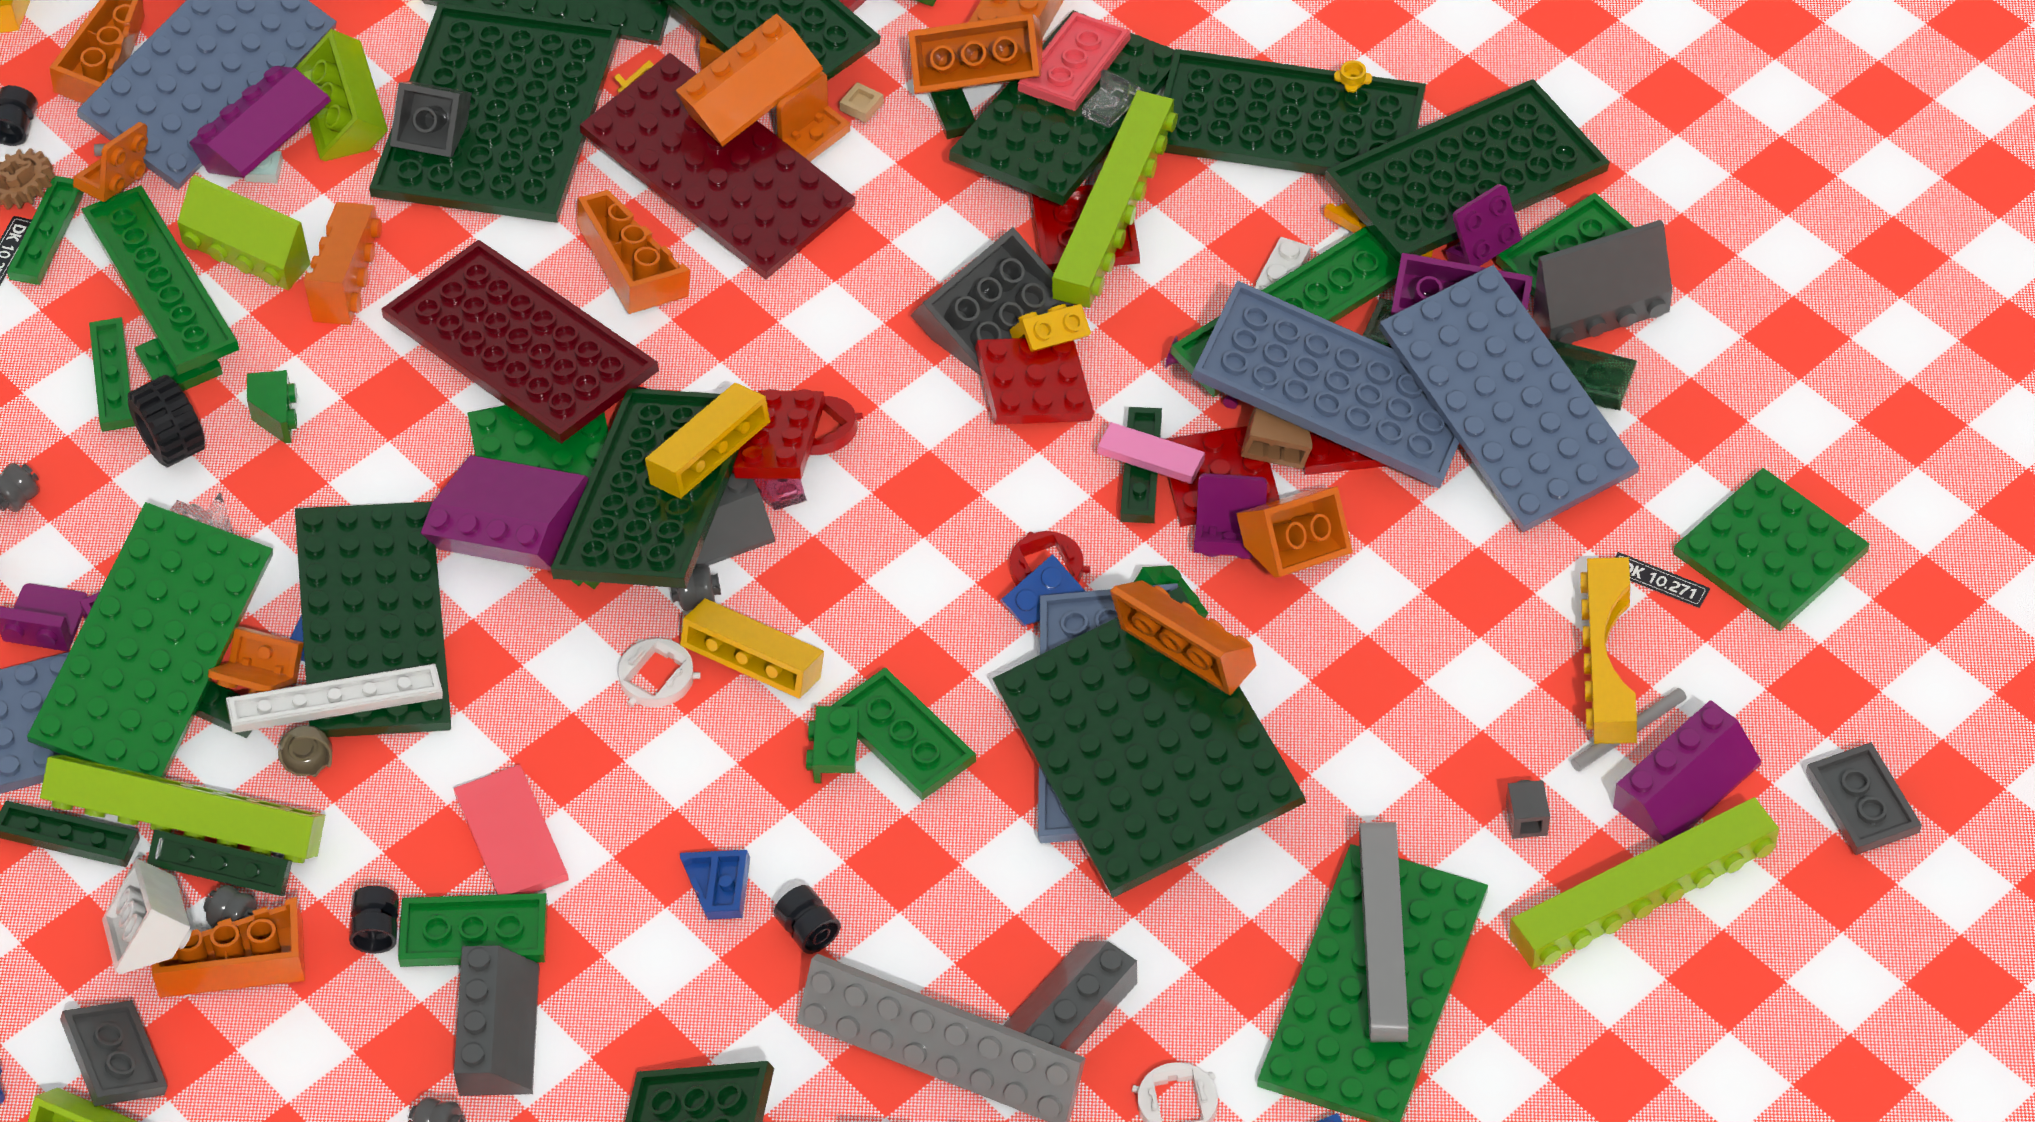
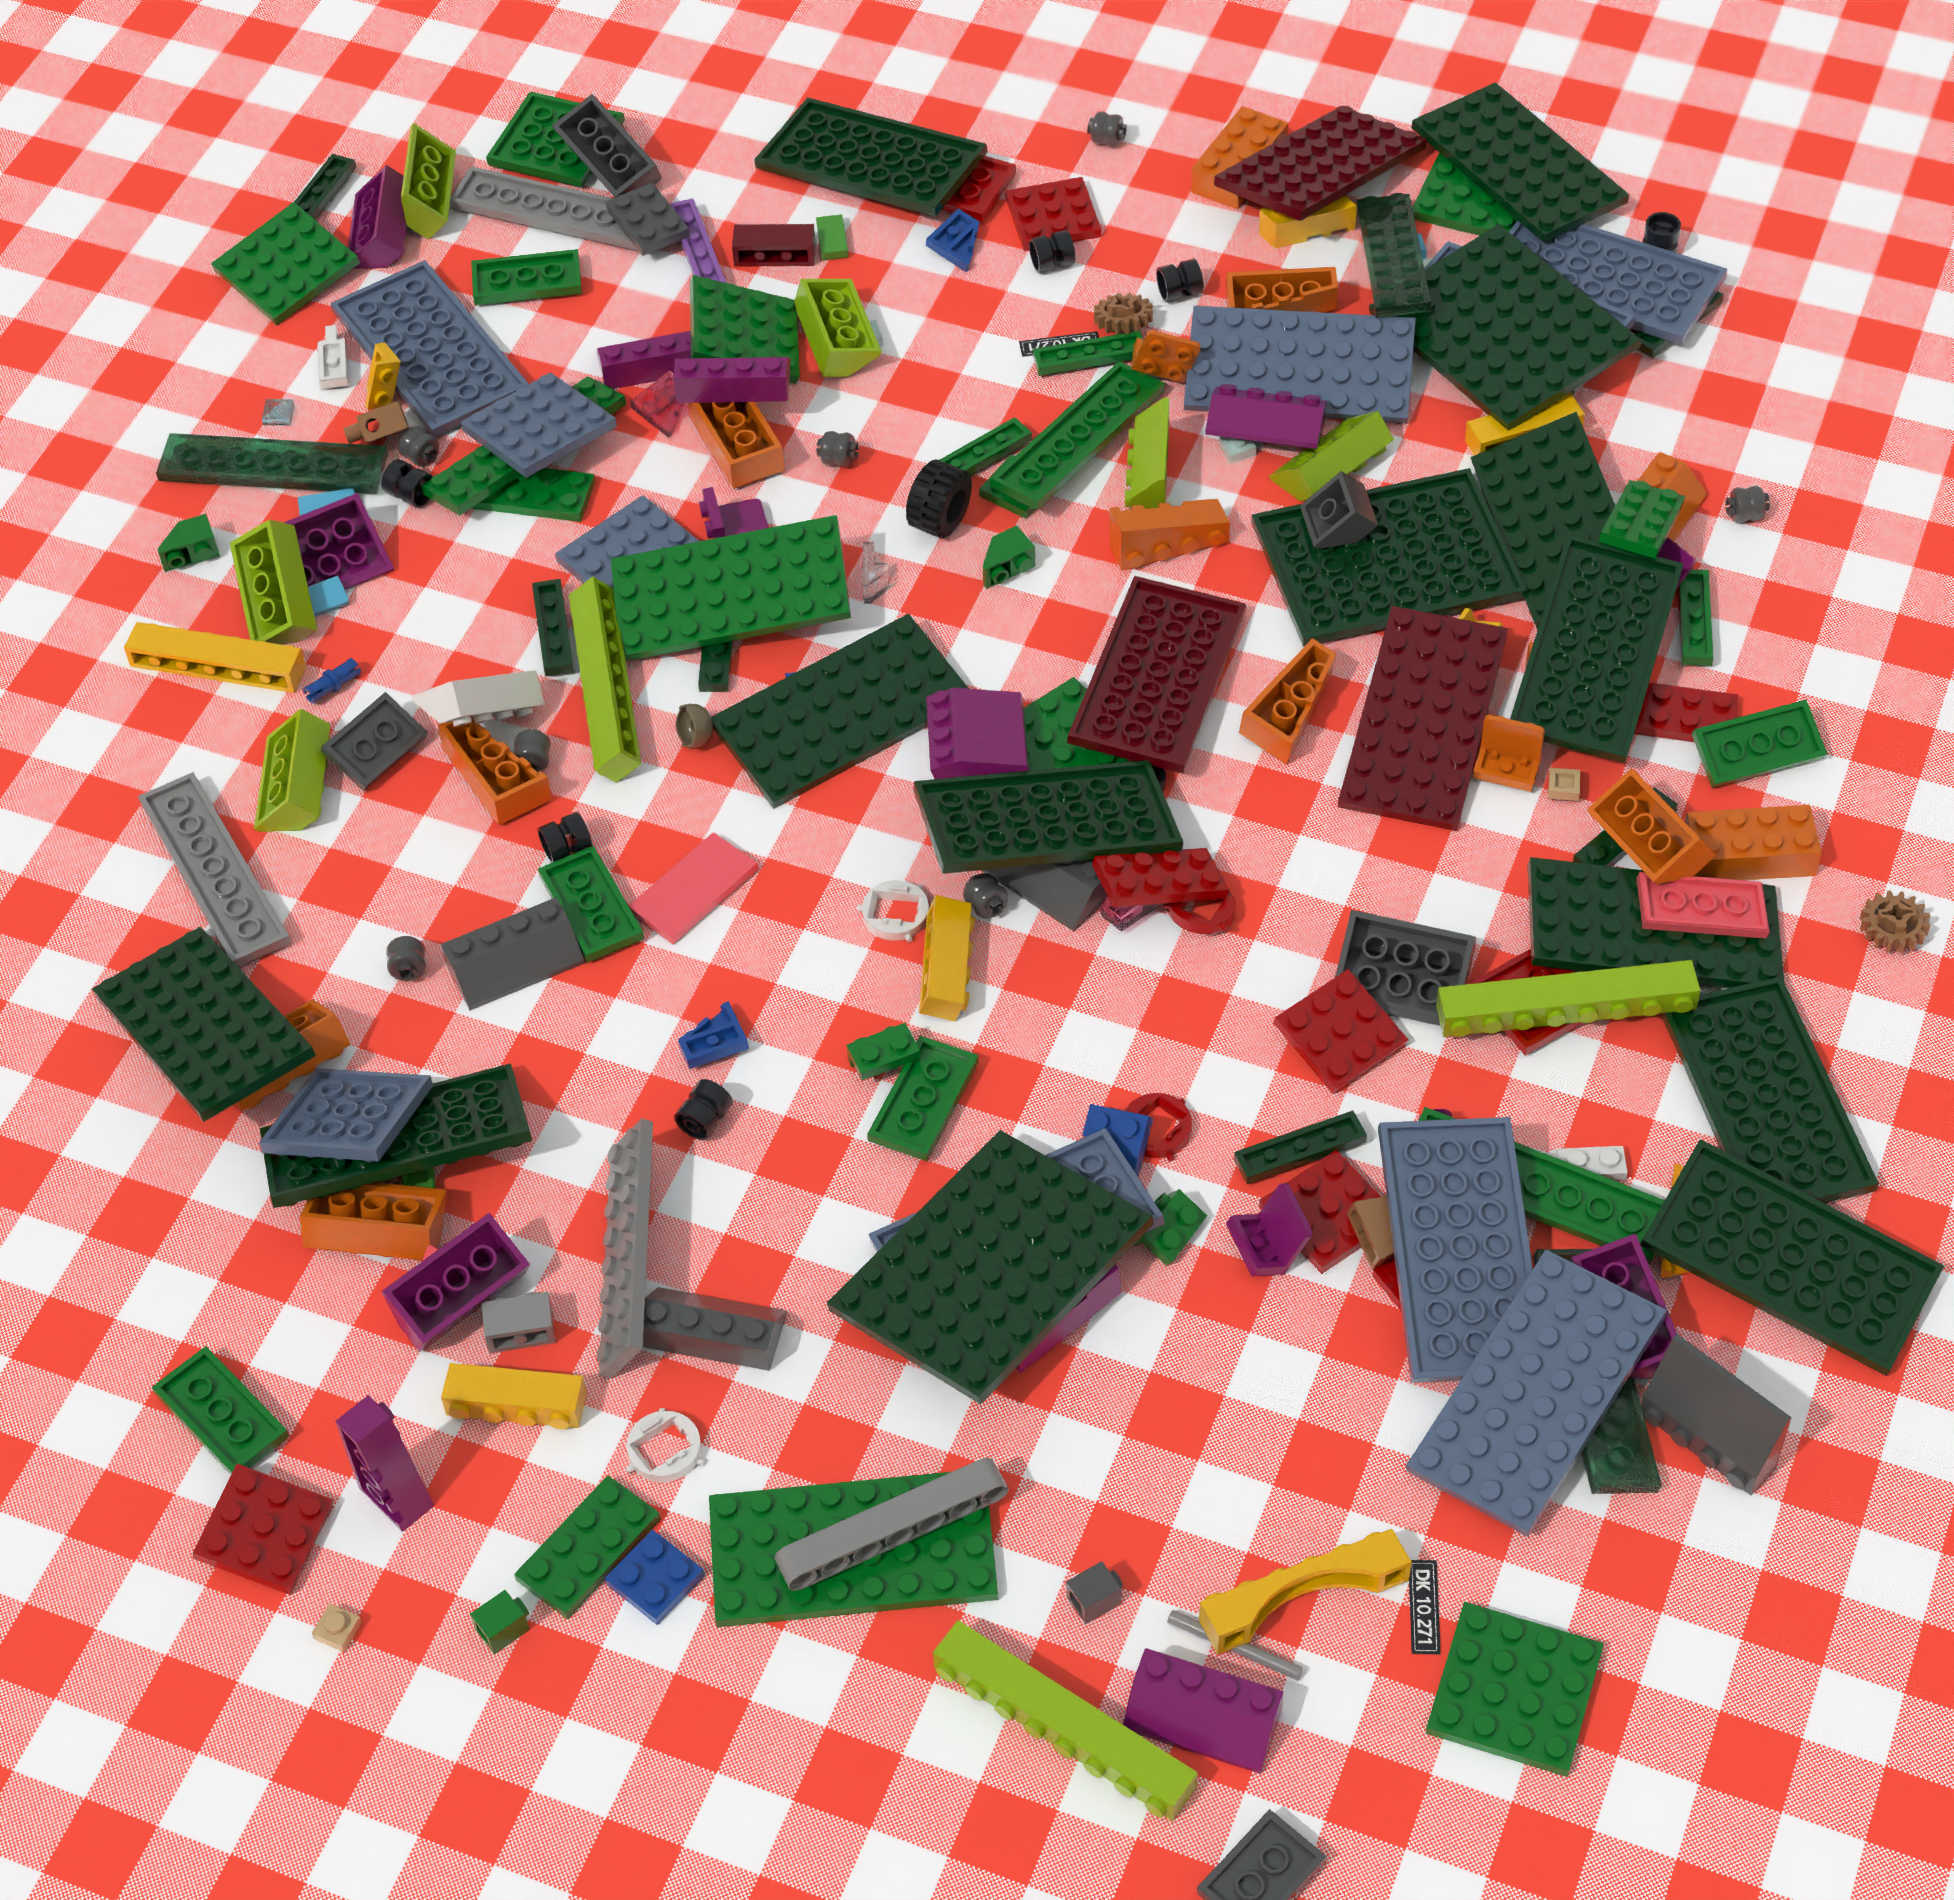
camera: 65 degrees right, 0 degrees up
(219, 862) = (571, 725): dark green plate -> none
(259, 662) = (751, 664): orange bracket -> none
(334, 698) = (742, 717): white tile -> none
(707, 440) = (1101, 823): yellow brick -> none
(748, 80) = (1495, 683): orange slope -> none
(1053, 328) = (1399, 1020): yellow bracket -> none
(1110, 100) = (1672, 947): clear slope -> none
(1151, 452) = (1308, 1145): bright pink tile -> none
(1183, 634) = (1083, 1229): orange slope -> none
(1296, 531) = (1284, 1286): orange slope -> none
(1353, 75) = (1840, 1113): yellow plate -> none
(1484, 228) = (1721, 1292): magenta bracket -> none
(1579, 224) = (1783, 1377): green plate -> none

